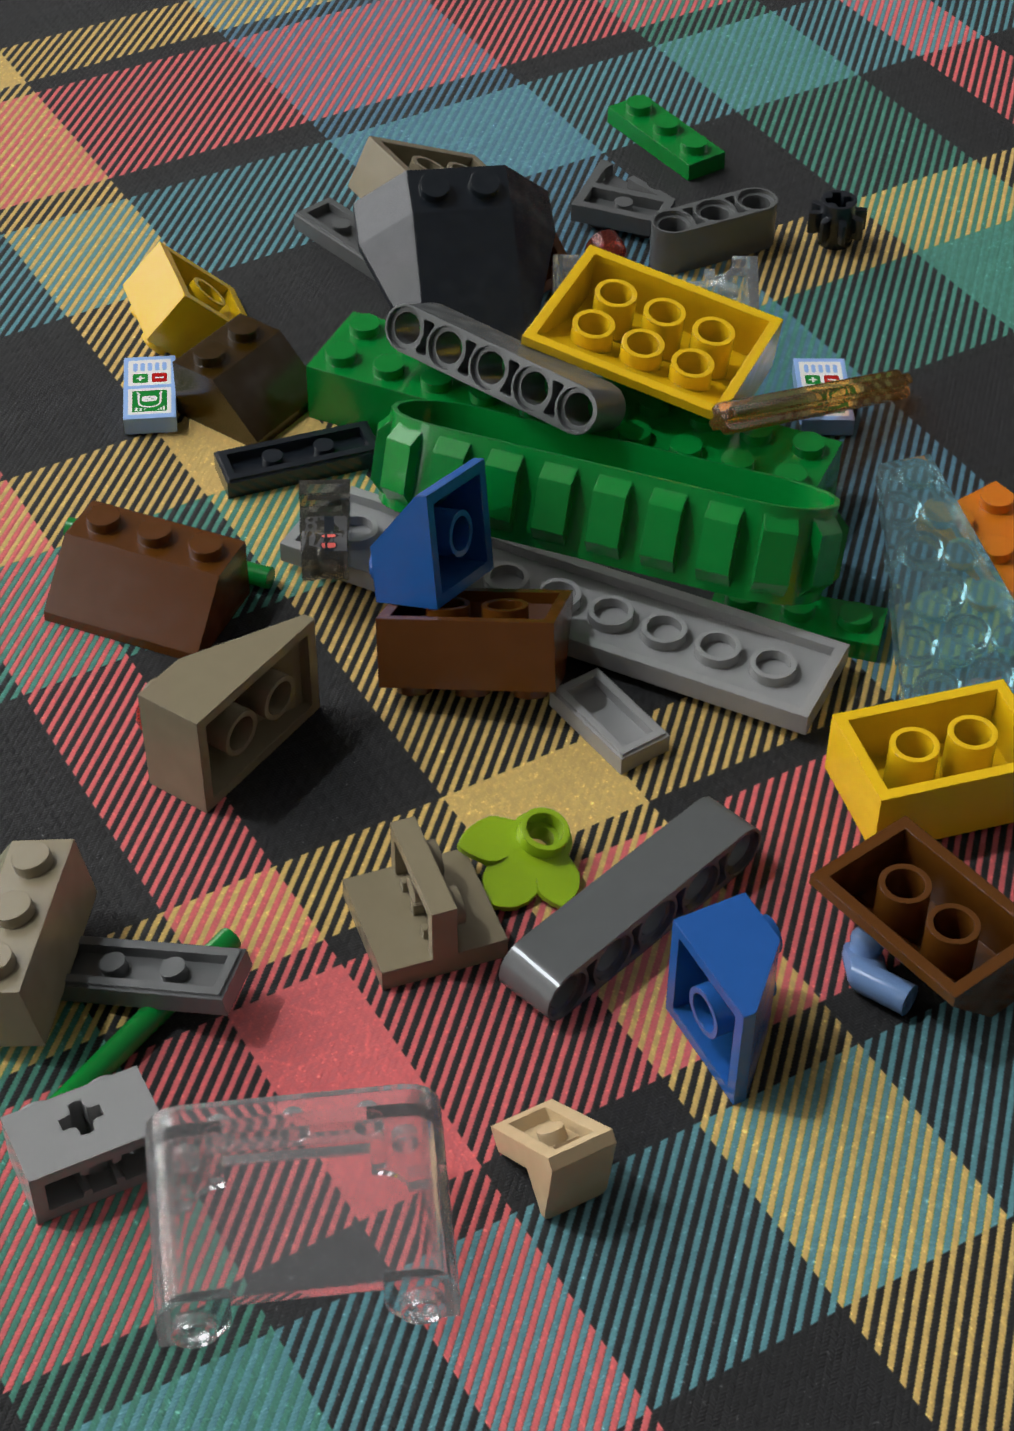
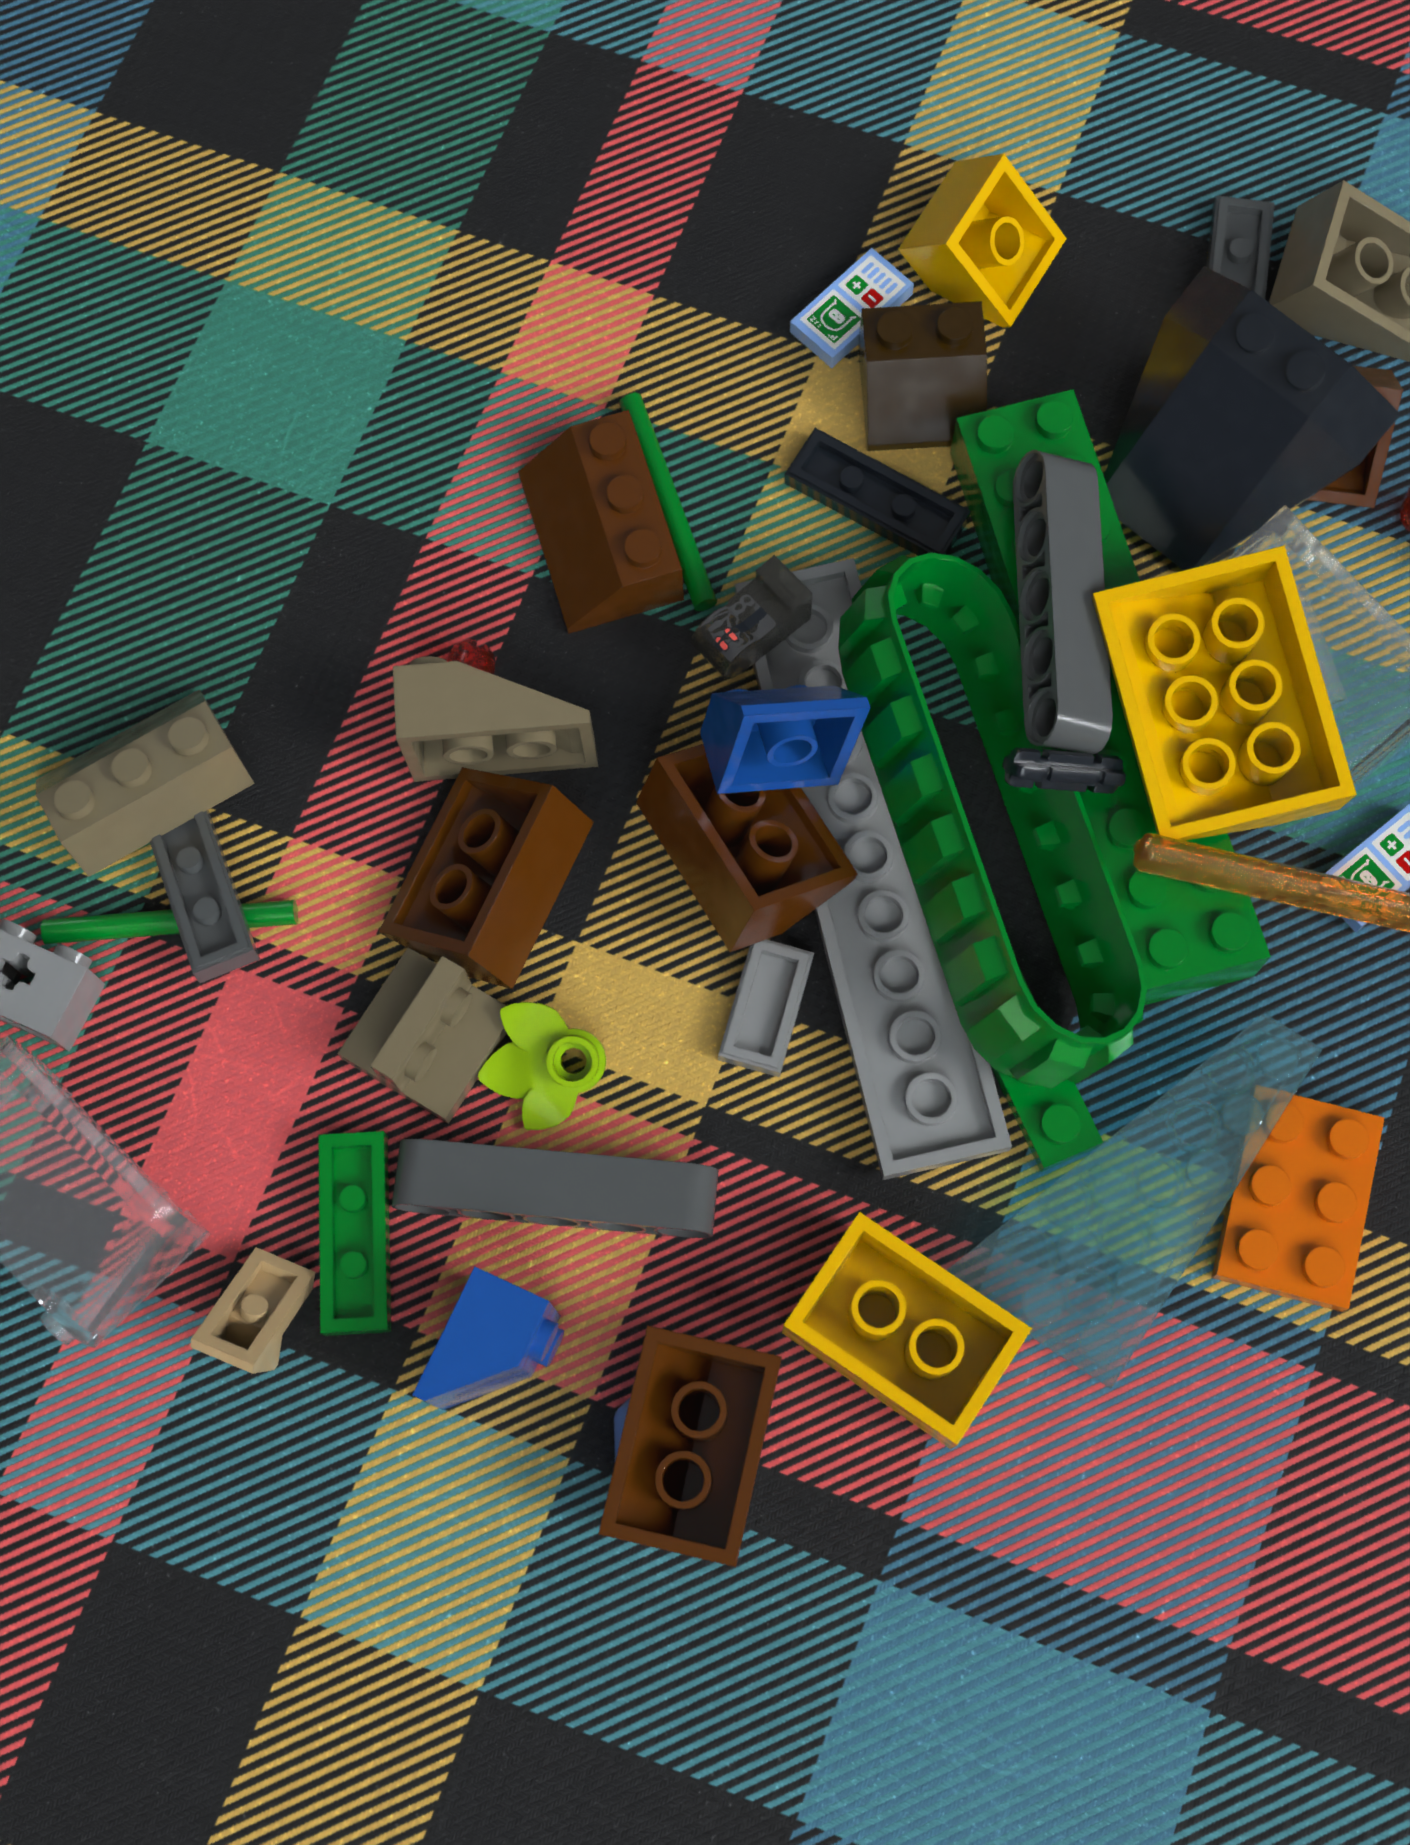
camera: 55 degrees right, 30 degrees up
(336, 787) = (488, 874): none -> reddish brown slope
(545, 1051) = (354, 1233): none -> green plate
(622, 428) = (1063, 770): none -> black axle

